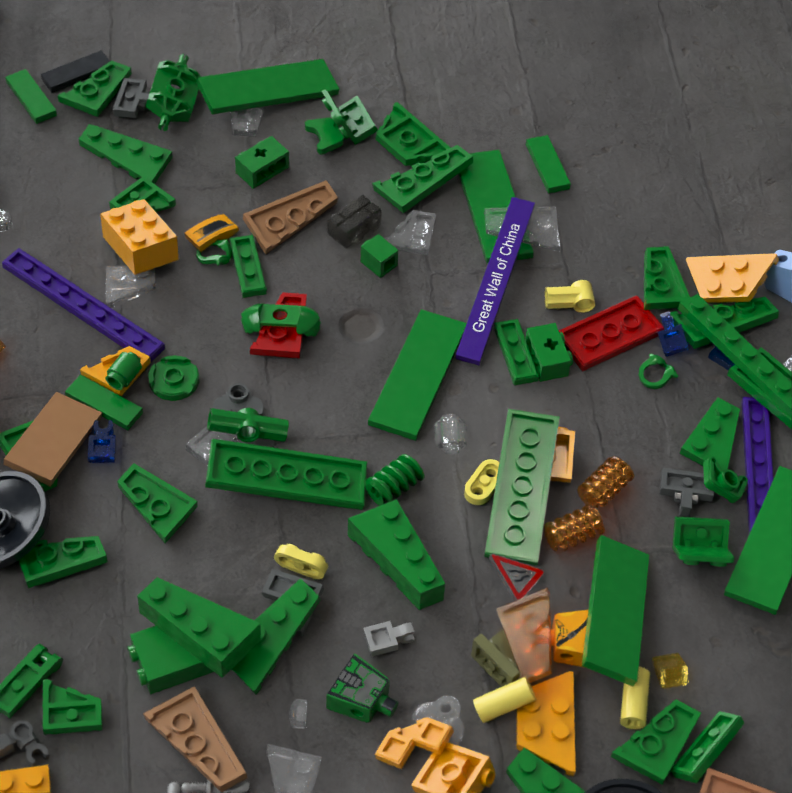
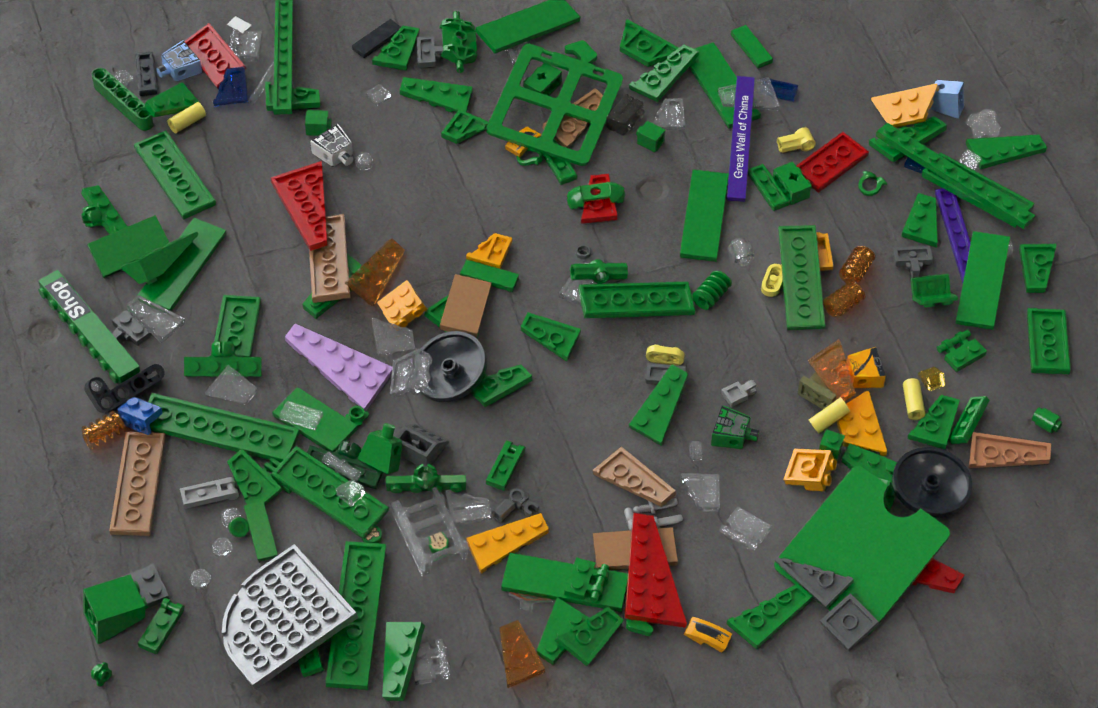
camera: 10 degrees left, 0 degrees up
(31, 96) = (350, 63): green tile -> none
(51, 140) = (378, 94): none -> clear tile
(69, 710) = (542, 477): green wing -> none
(81, 304) = (445, 209): dark purple tile -> none
(102, 444) = (500, 304): clear blue plate -> none
(123, 284) = (475, 188): clear wing -> none
(123, 370) = (499, 250): green brick -> none
(139, 236) = (475, 154): light orange brick -> none
(163, 660) = (598, 429): green brick -> none
(173, 378) = (532, 250): green tile -> none
(199, 625) = (615, 405): green wedge -> none
(270, 195) = (559, 106): none -> green window
(352, 116) = (598, 37): green bracket -> none
(396, 548) = (730, 336): green wedge -> none
(400, 742) = (784, 446): light orange tile -> none
(434, 711) = (789, 440): clear plate -> none
(496, 744) = (834, 442): none -> green brick
(516, 576) = (814, 337): piece -> none
(573, 226) = (784, 90): none -> clear blue tile
(616, 611) = (887, 345): green tile -> none
(662, 280) = (858, 117): green wing -> none
(673, 337) = (876, 157): clear blue plate -> none
(725, 482) = (937, 249): green piece -> none
(726, 644) = (964, 355): none -> green plate

